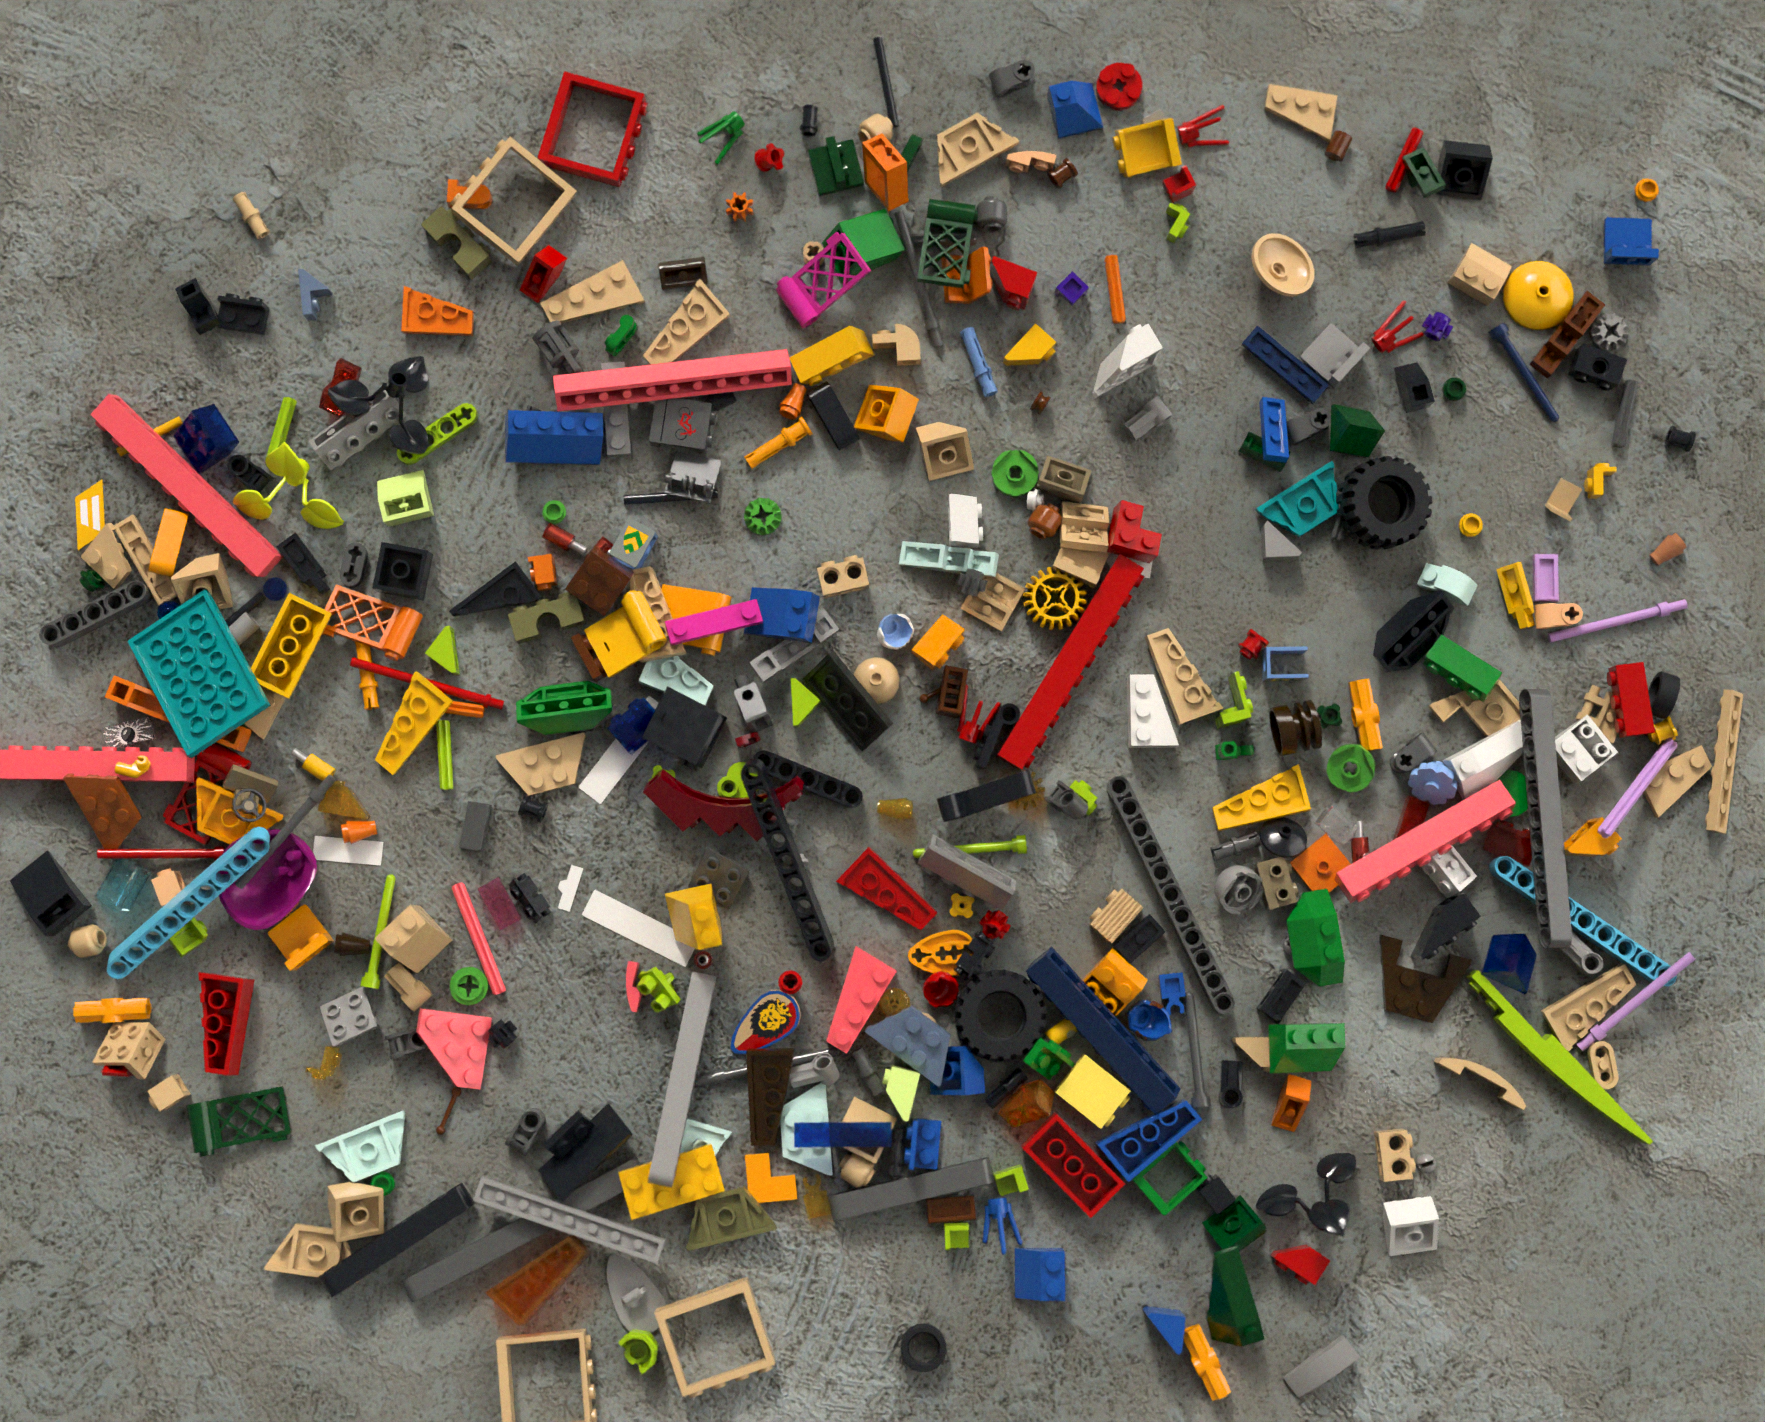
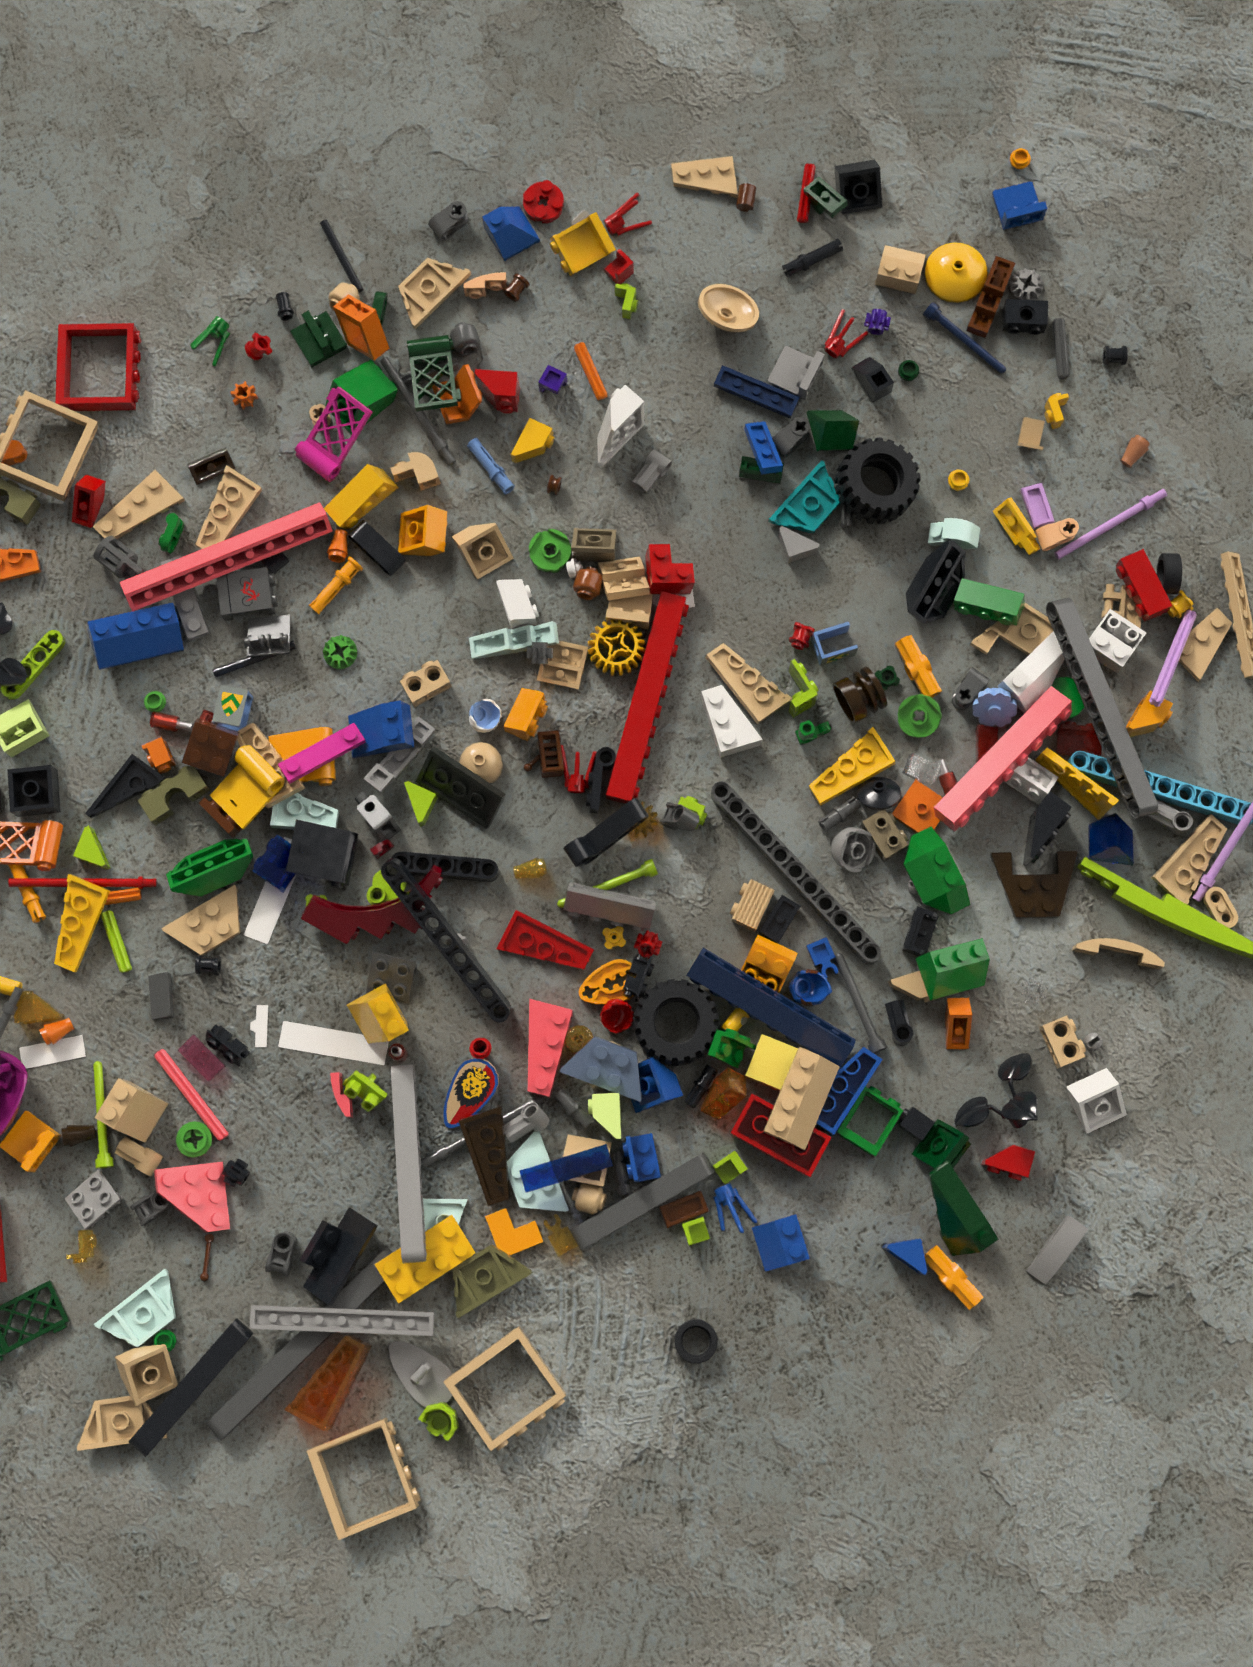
camera: 10 degrees left, 5 degrees down
(1105, 1135) = (801, 1098): none -> tan slope
(1499, 898) = (1080, 786): none -> yellow wing

